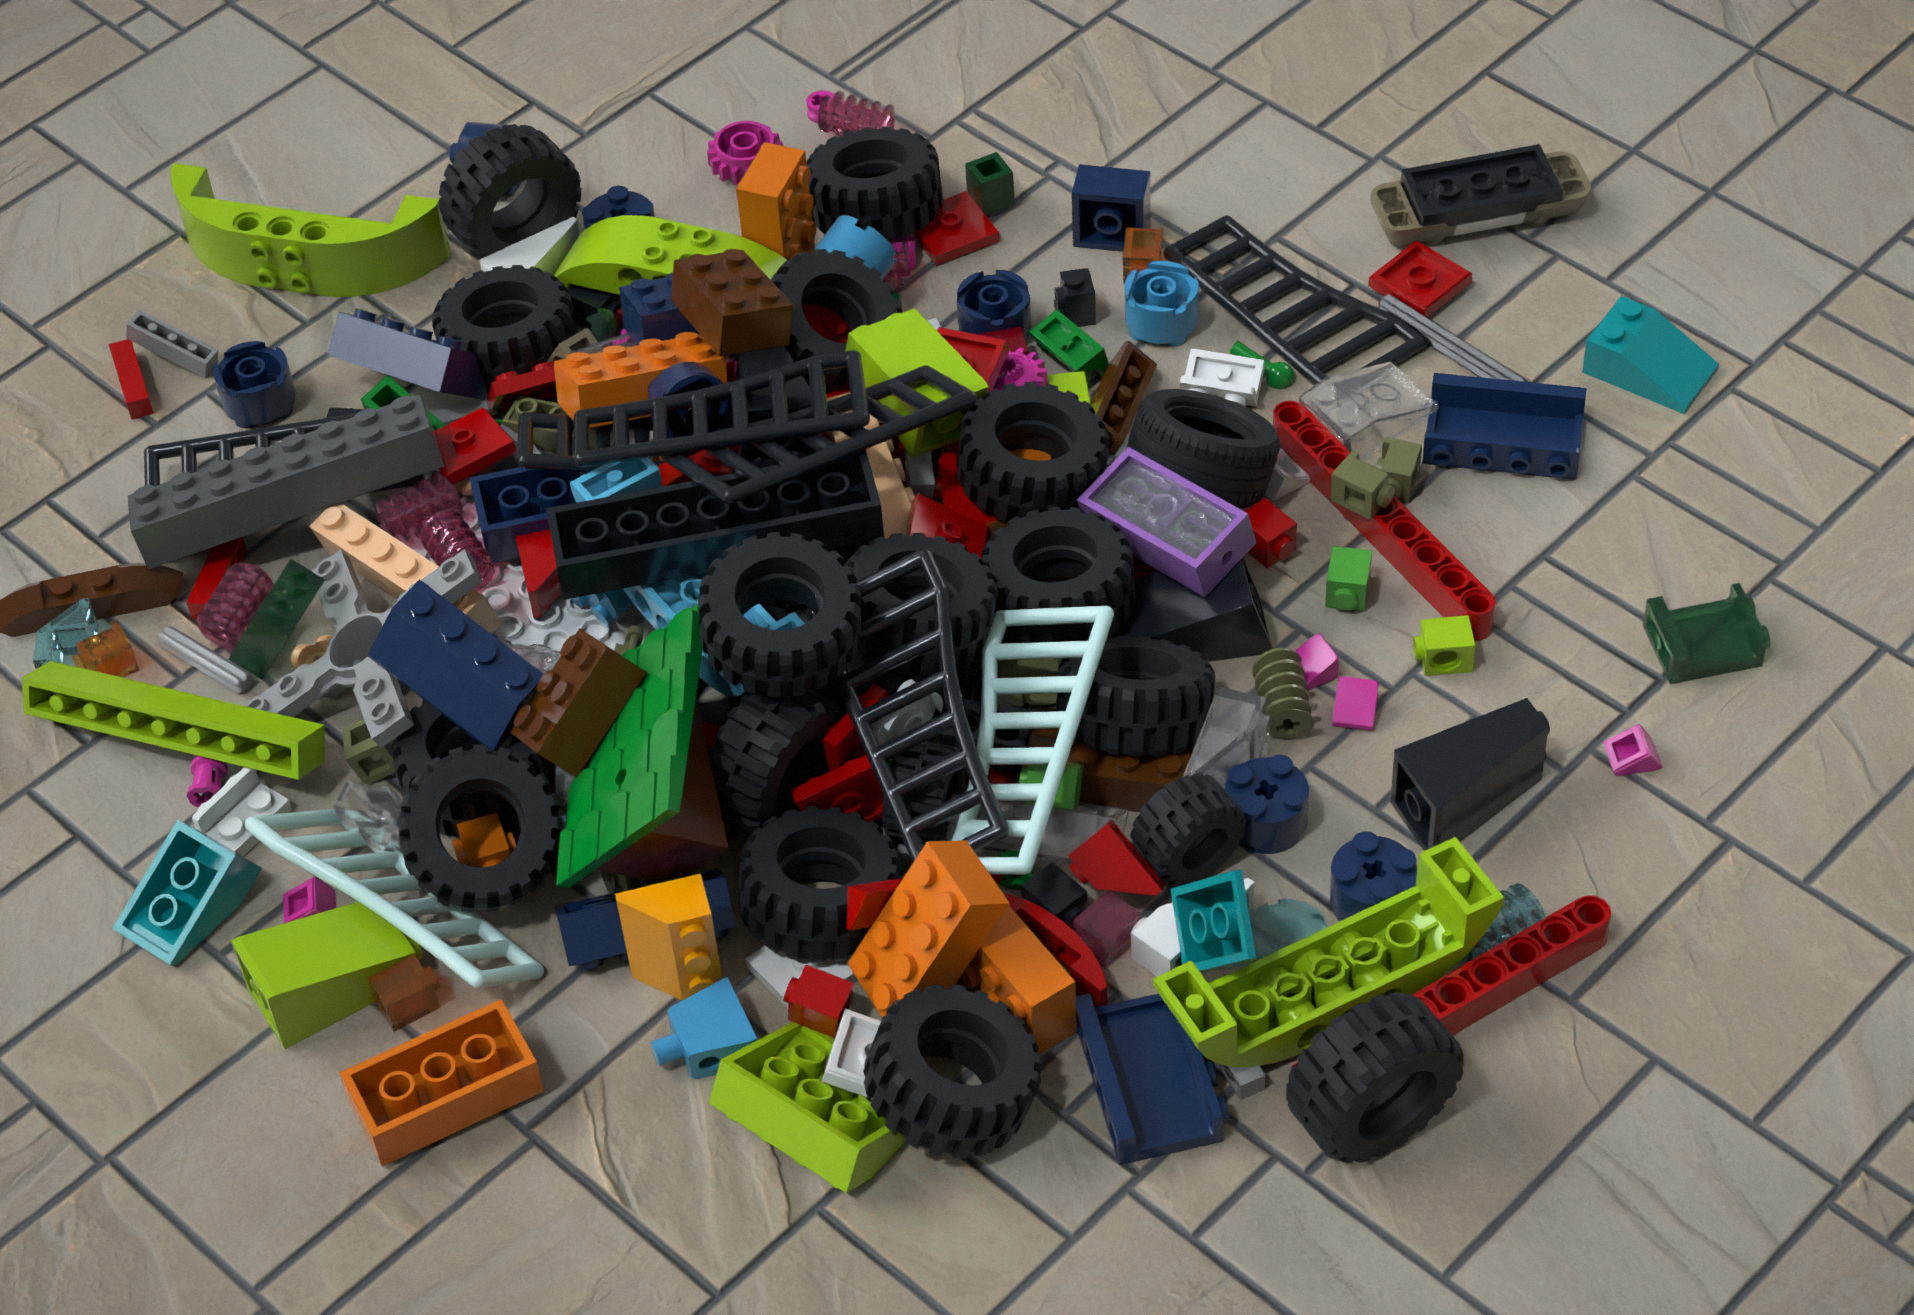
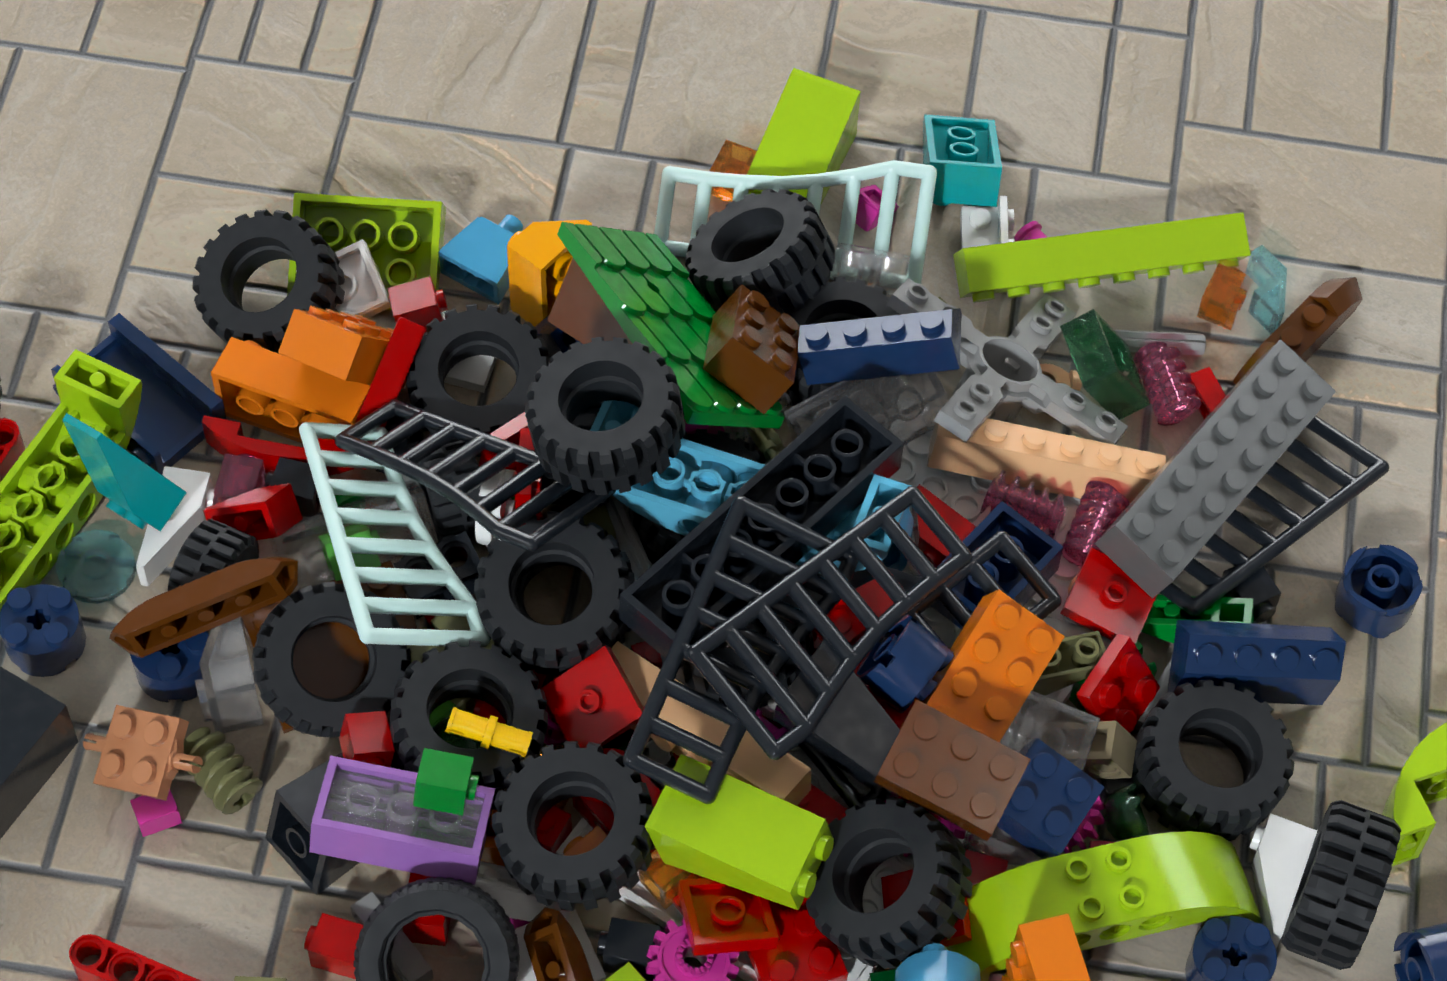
camera: 140 degrees right, 10 degrees up
(441, 1082) = (642, 119): orange brick -> none
(1055, 517) = (489, 732): none -> yellow pin
(1119, 494) = (445, 782): none -> green brick
(1152, 608) = (367, 738): none -> red brick
(1222, 752) = (205, 604): none -> reddish brown brick
(1318, 661) = (218, 833): dark pink slope -> none
(1343, 731) = (141, 752): none -> nougat plate
(1348, 578) = (232, 934): bright green brick -> none
(1445, 645) = (103, 906): lime brick -> none

